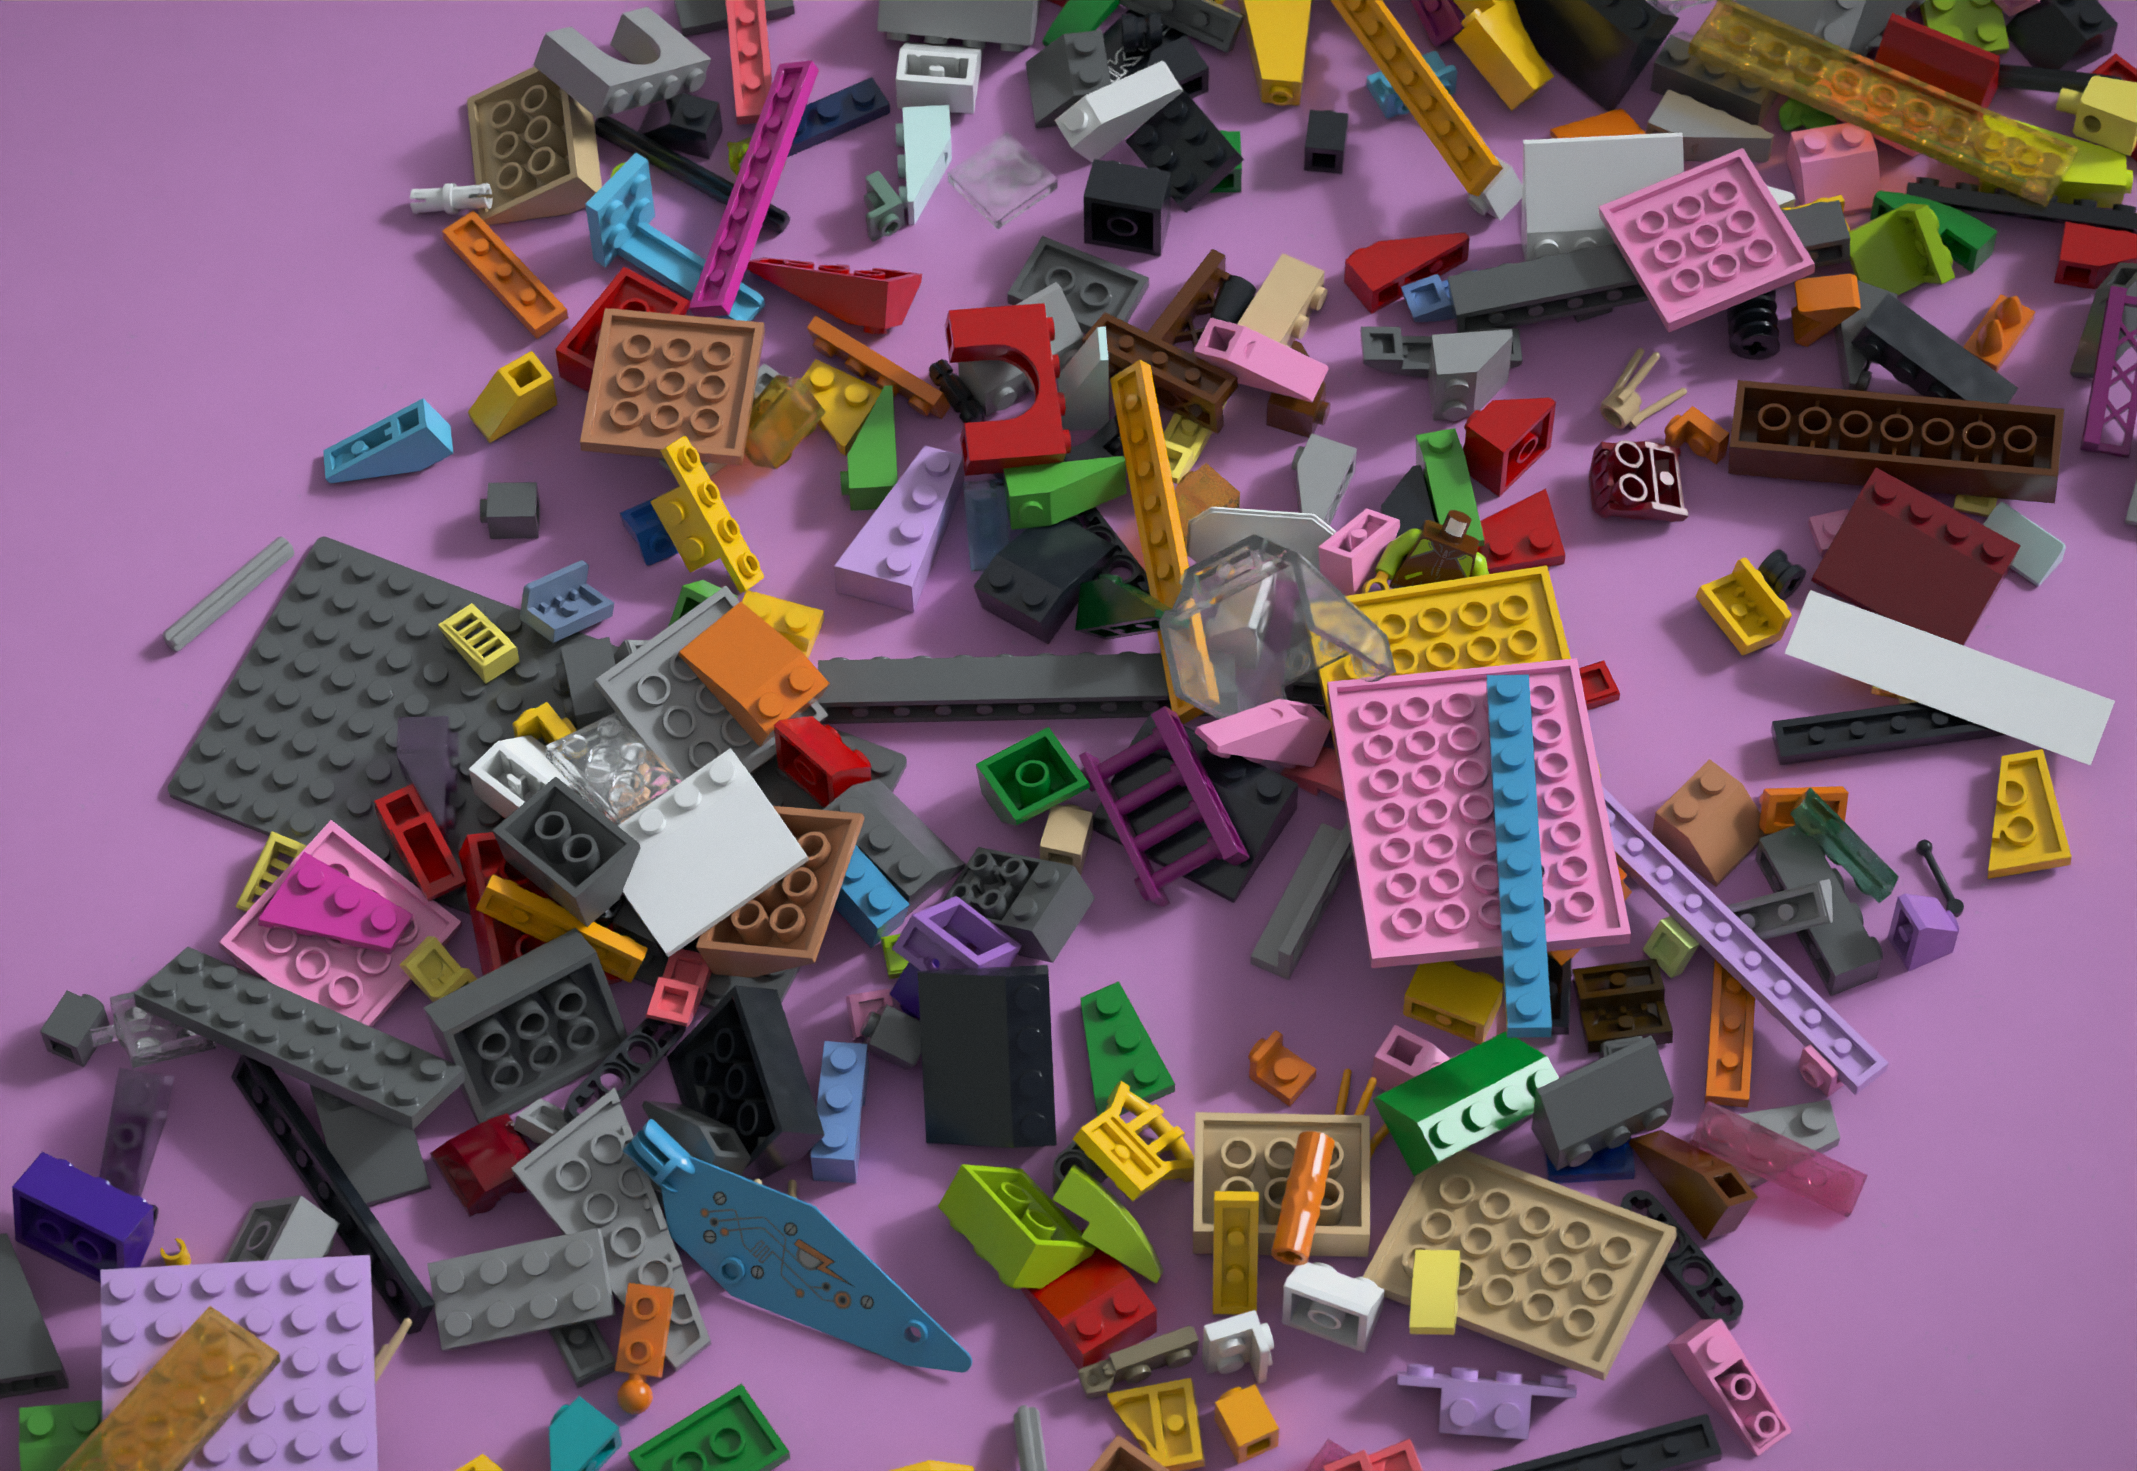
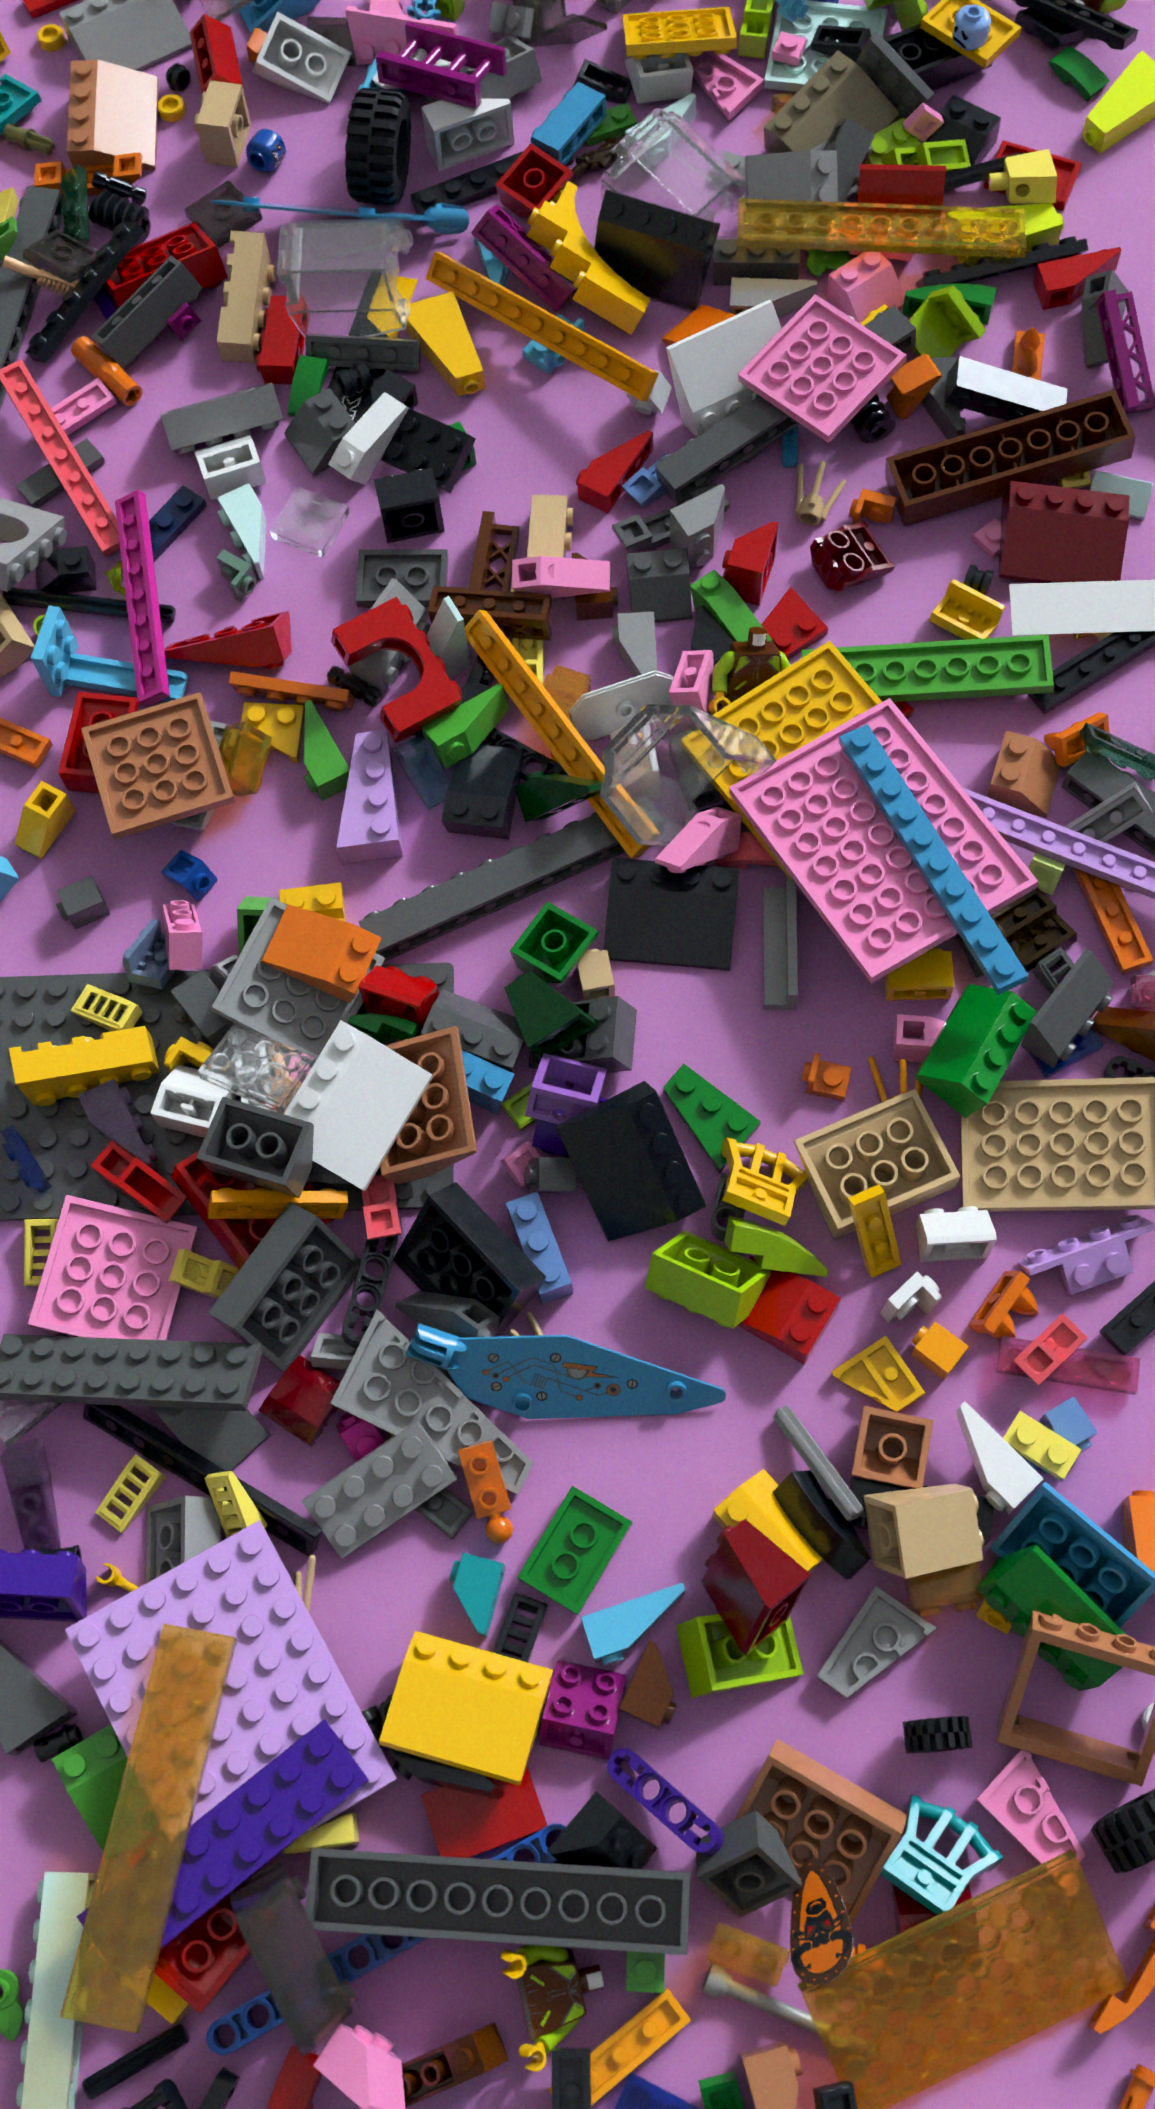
camera: 20 degrees left, 10 degrees up
(23, 1399) = (57, 1742): none -> black pin
(249, 1158) = (120, 1486): none -> light yellow slope
(302, 751) = (31, 1171): none -> clear blue plate
(334, 906) = (101, 1259): dark pink wing -> none
(350, 1231) = (232, 1505): none -> light yellow slope
(396, 684) = (83, 1064): none -> yellow wedge
(528, 1222) = (358, 1435): none -> dark pink bracket
(606, 592) = (182, 935): none -> bright pink slope
(700, 521) = (223, 854): yellow bracket -> none
(784, 787) = (379, 1025): none -> green slope
(980, 854) = (545, 1015): none -> dark green slope
(1138, 1361) = (840, 1342): dark tan hinge -> none
(1202, 808) = (685, 915): magenta fence -> none
(1232, 299) = (514, 543): black cone -> none
(1303, 1198) = (905, 1172): orange axle -> none
(1326, 141) = (518, 405): black brick -> none
(1370, 1404) = (1007, 1294): none -> orange tile
(1383, 420) = (660, 584): none -> dark grey slope
(1434, 1292) = (1024, 1197): light yellow slope -> none
(1636, 325) = (790, 448): none -> dark azure axle
(1687, 661) = (954, 668): none -> bright green plate
(2010, 40) = (942, 153): none -> lime slope

